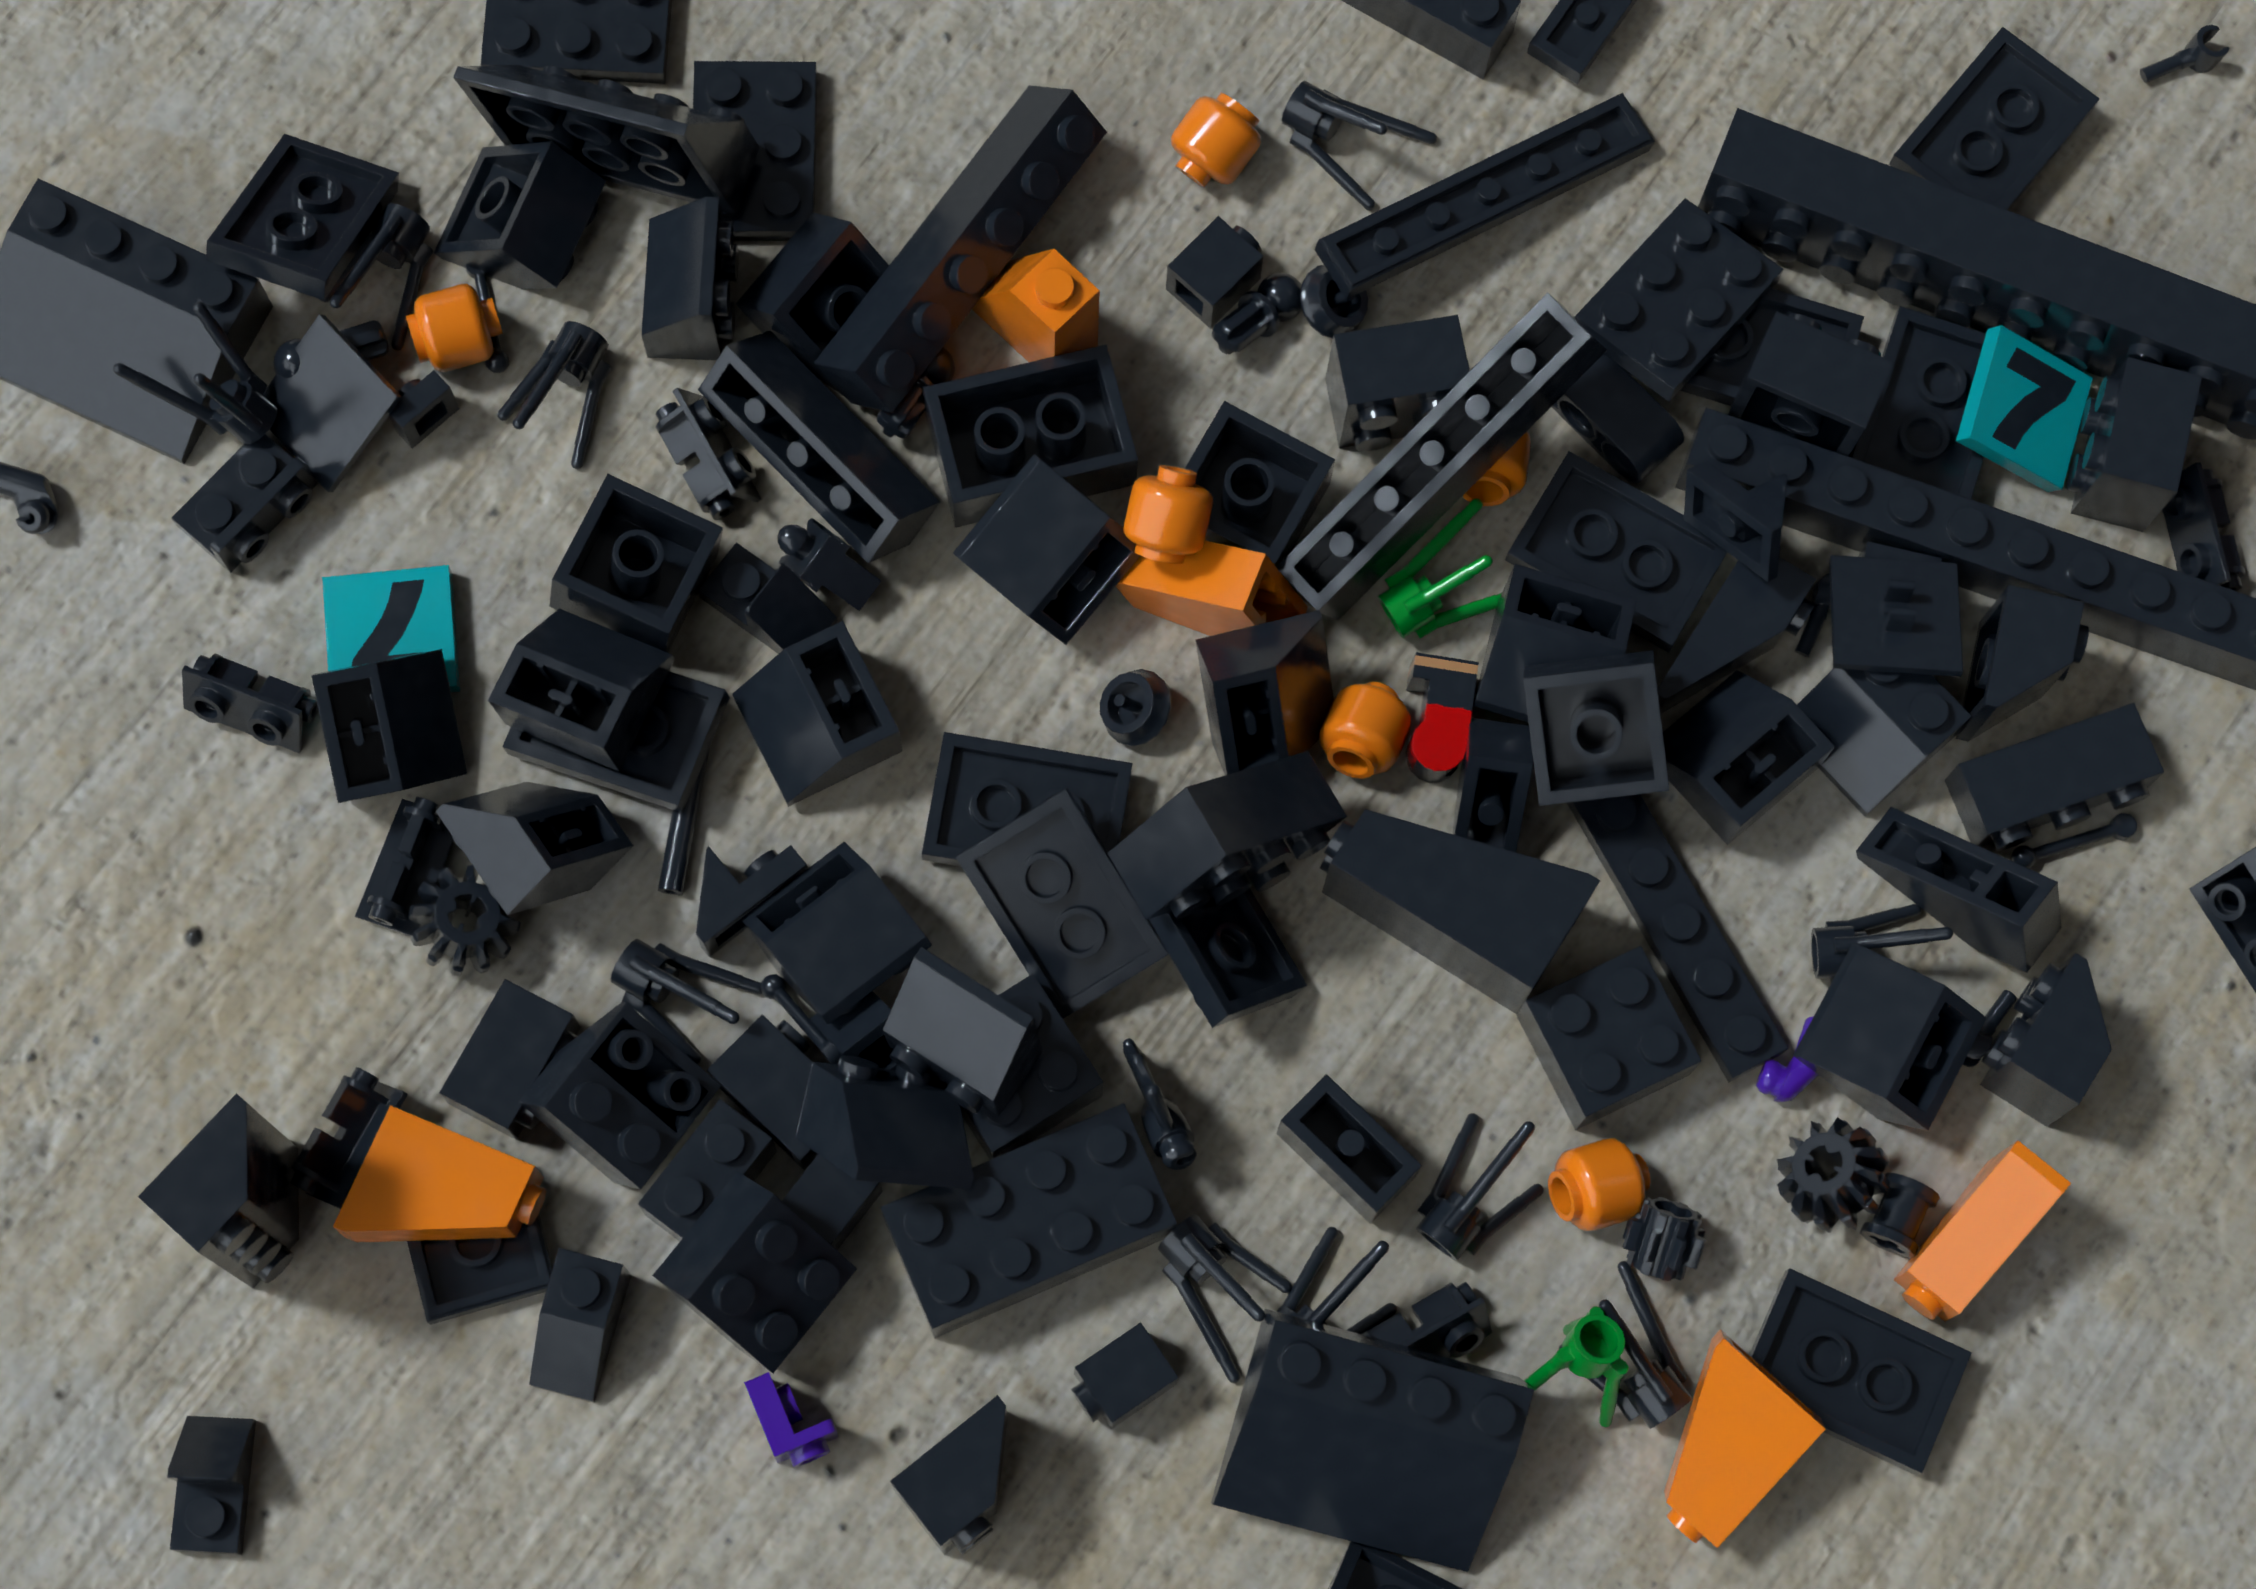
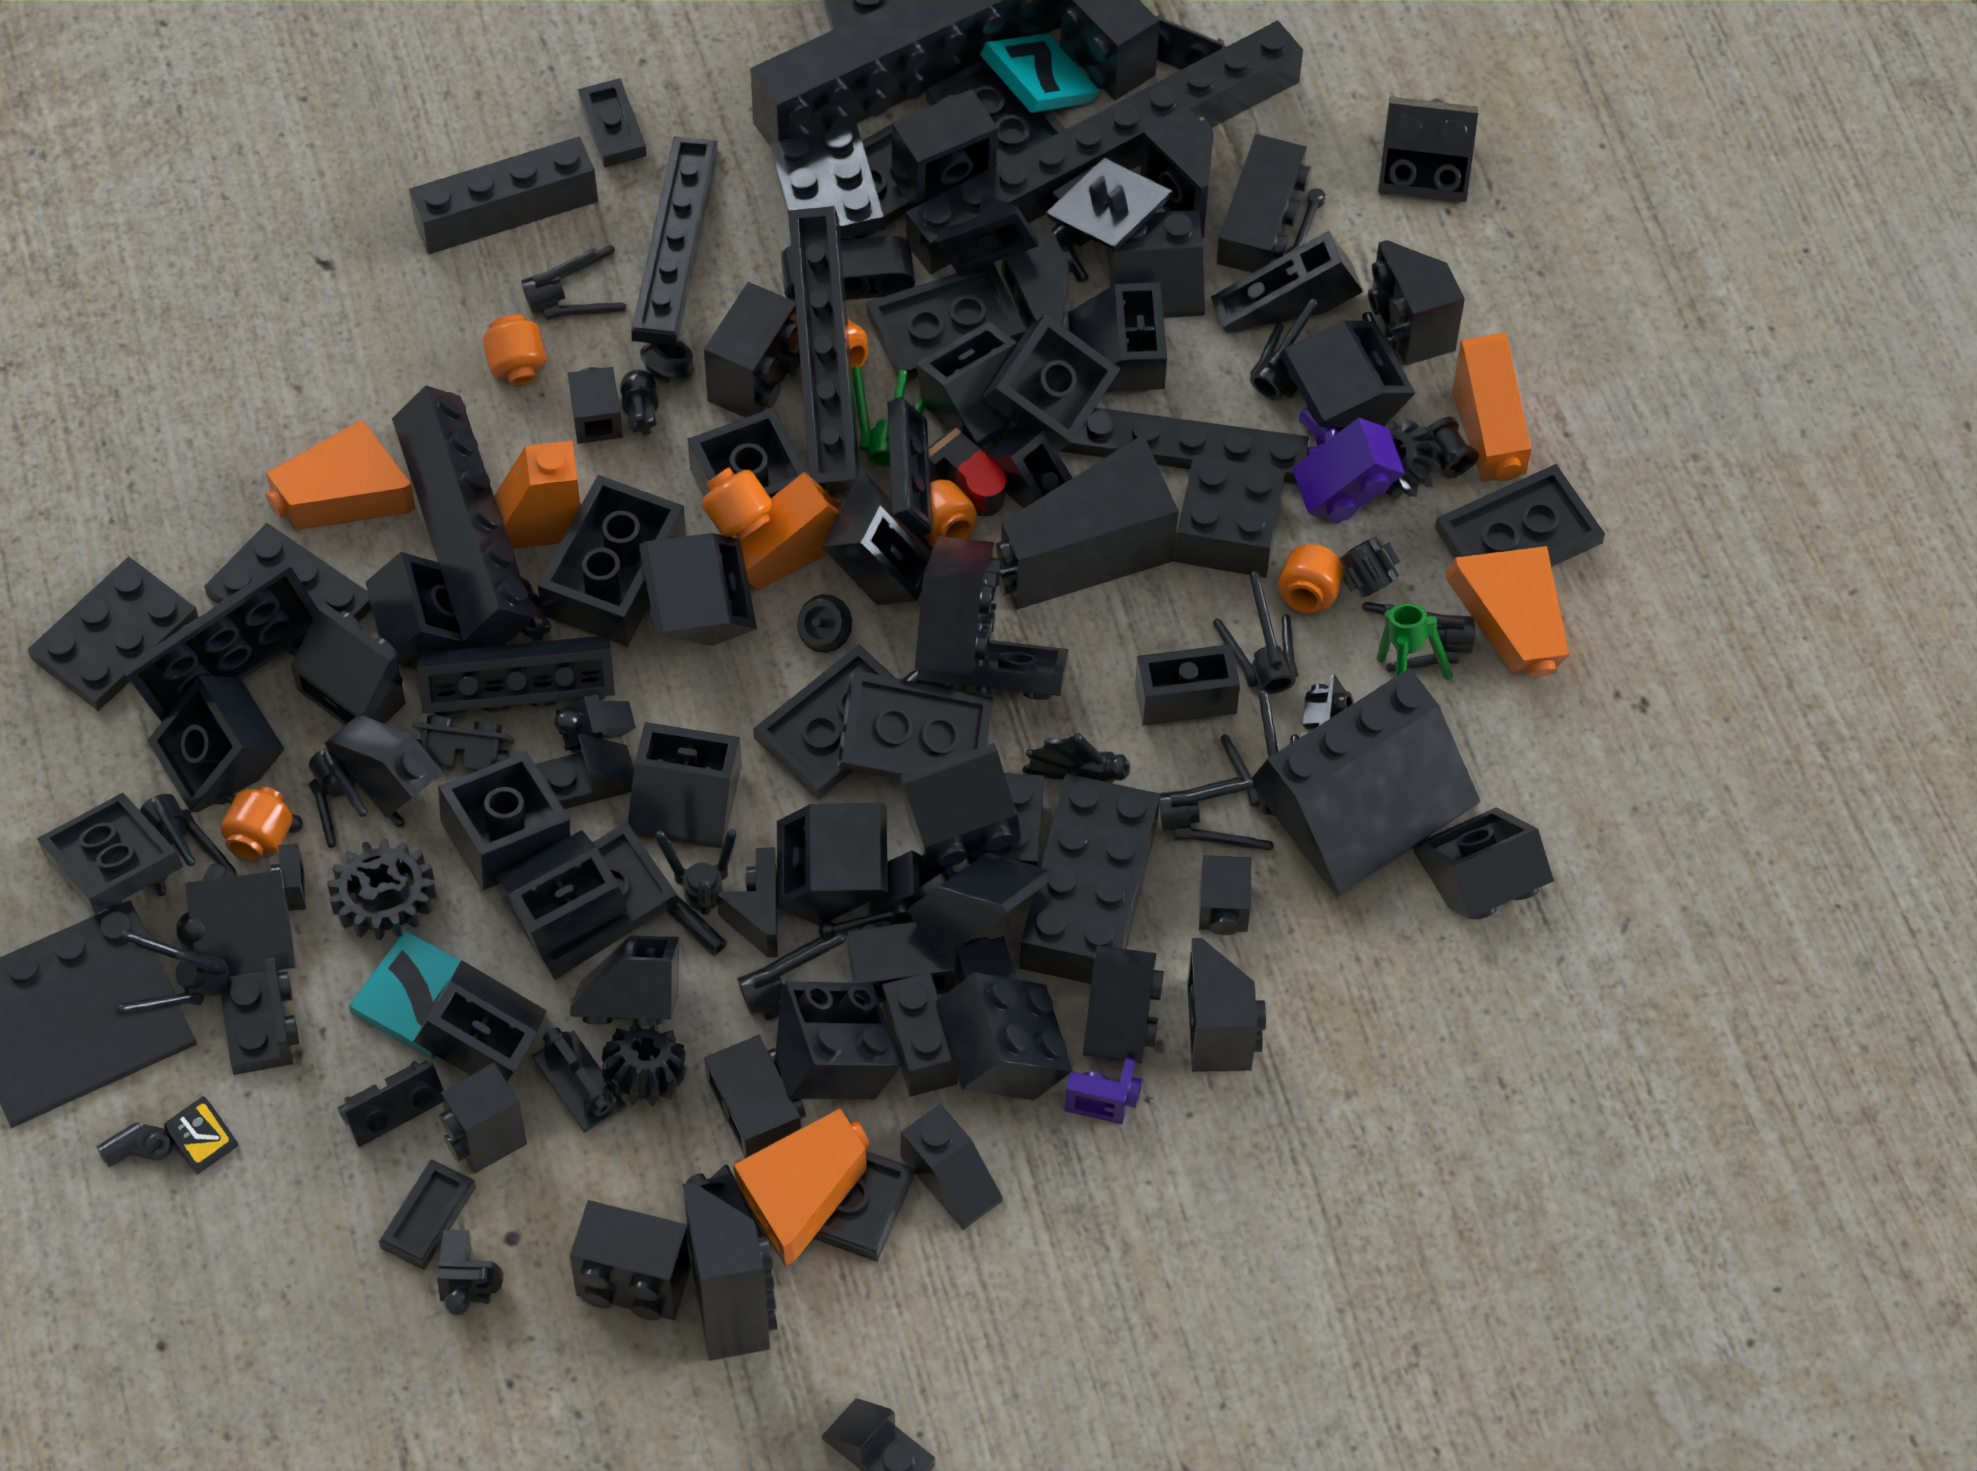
camera: 50 degrees left, 15 degrees down
(77, 548) = (200, 1135): none -> slope
(96, 914) = (461, 1279): none -> black piece
(153, 833) = (426, 1212): none -> black tile
(205, 1060) = (630, 1261): none -> black brick
(271, 810) = (482, 1119): none -> black brick
(444, 512) = (382, 889): none -> black gear
(607, 394) = (383, 762): none -> black slope
(723, 815) = (701, 880): none -> black plant
(887, 1367) = (1120, 1004): none -> black brick
(917, 92) = (340, 482): none -> orange slope
(1374, 656) = (909, 467): none -> black tile
(1760, 1131) = (1348, 471): none -> dark purple brick

